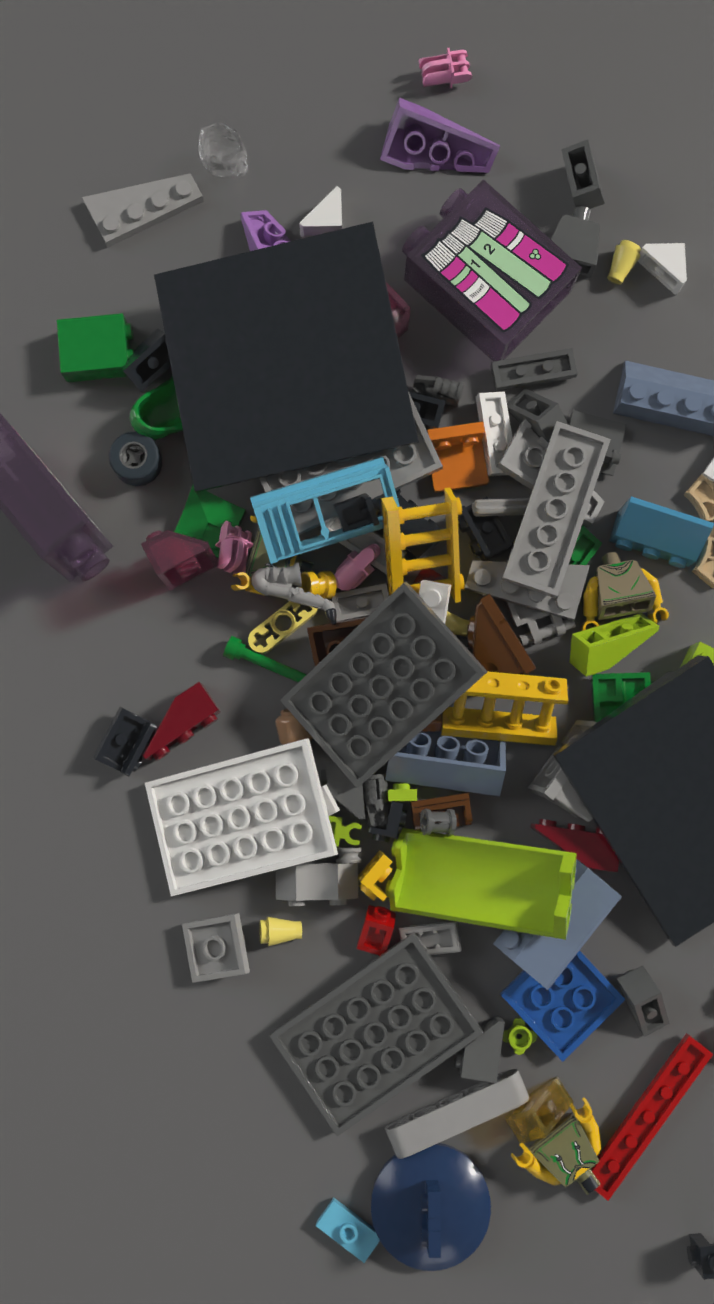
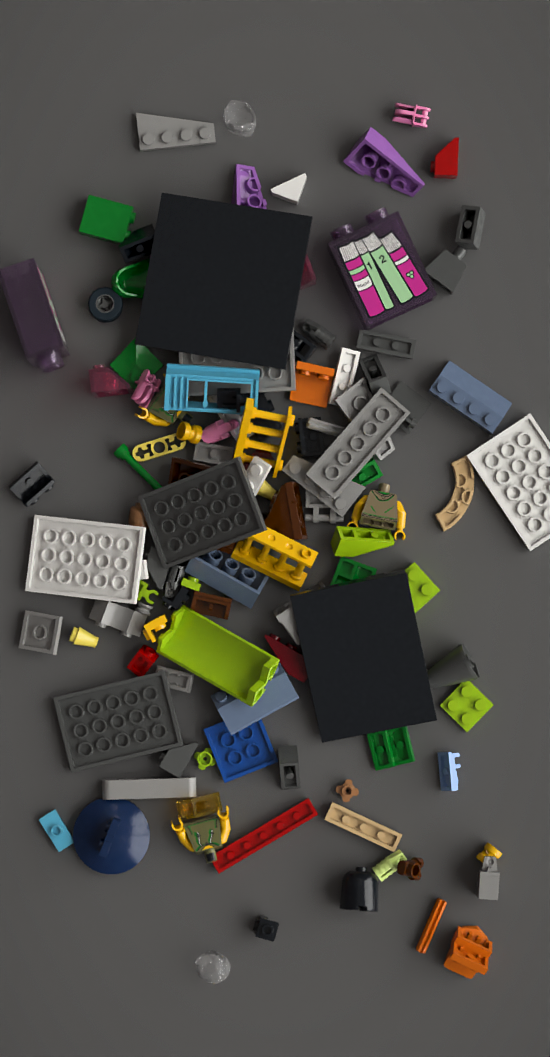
camera: 25 degrees right, 5 degrees up
(184, 716) = (76, 482): dark red slope -> none
(279, 583) = (165, 422): light grey piece -> none
(428, 820) = (199, 609): dark grey bush -> none
(516, 109) = (446, 161): none -> red slope
(624, 259) = (475, 294): light yellow cone -> none
(660, 532) = (419, 484): dark azure slope -> none
(666, 263) = (502, 306): white slope -> none

